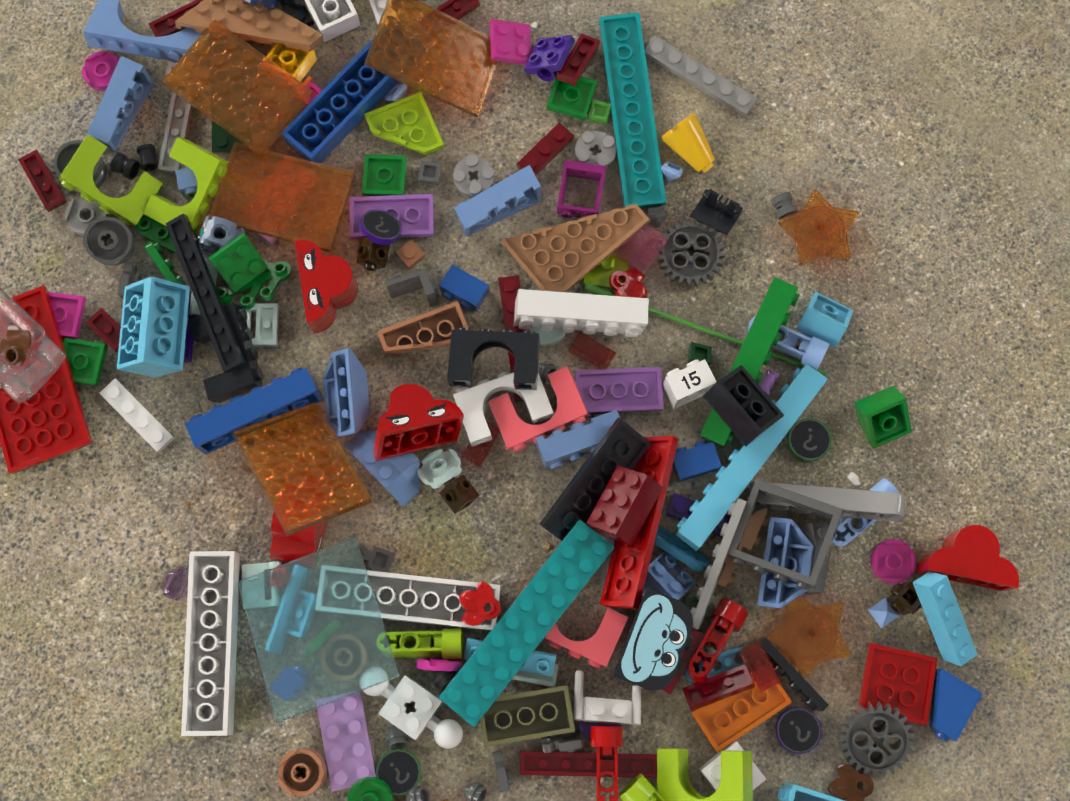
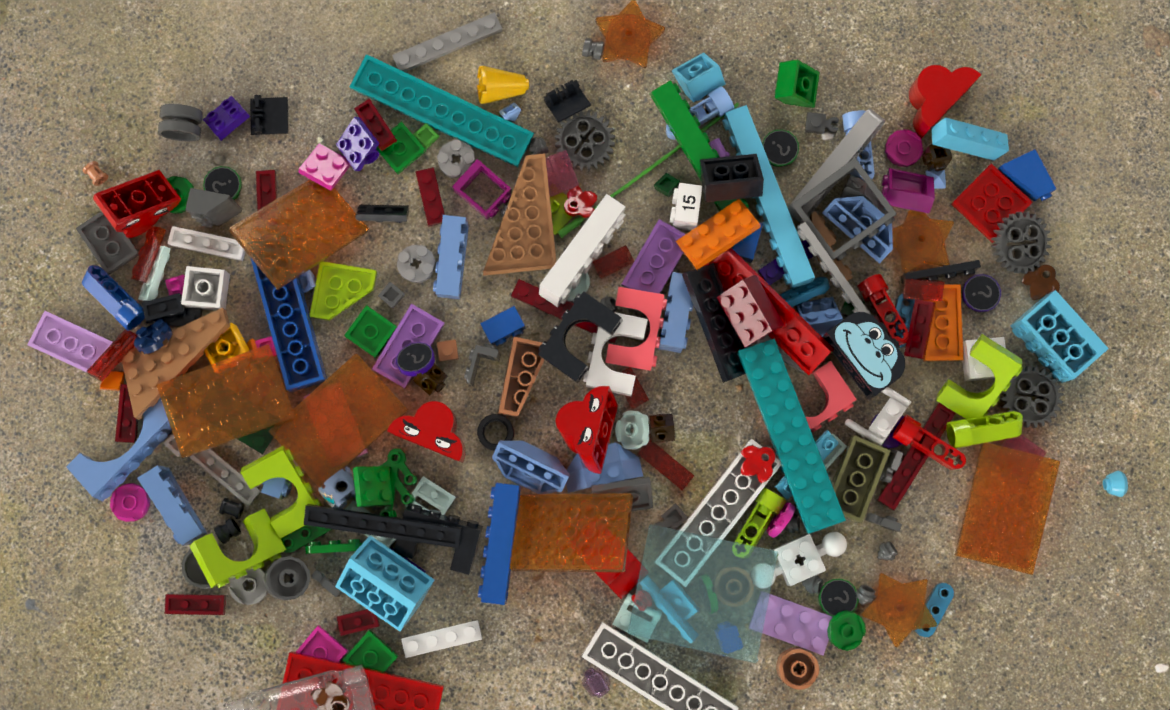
camera: 60 degrees left, 5 degrees up
(365, 328) = (490, 418): none -> black tyre
(382, 506) = (639, 488): none -> dark grey plate
(427, 521) = (666, 465): none -> clear red plate
(501, 118) = (383, 213): none -> black hinge
(680, 428) = (718, 234): none -> orange plate
(859, 461) = (818, 123): none -> dark grey plate
(860, 585) = (908, 190): none -> magenta window

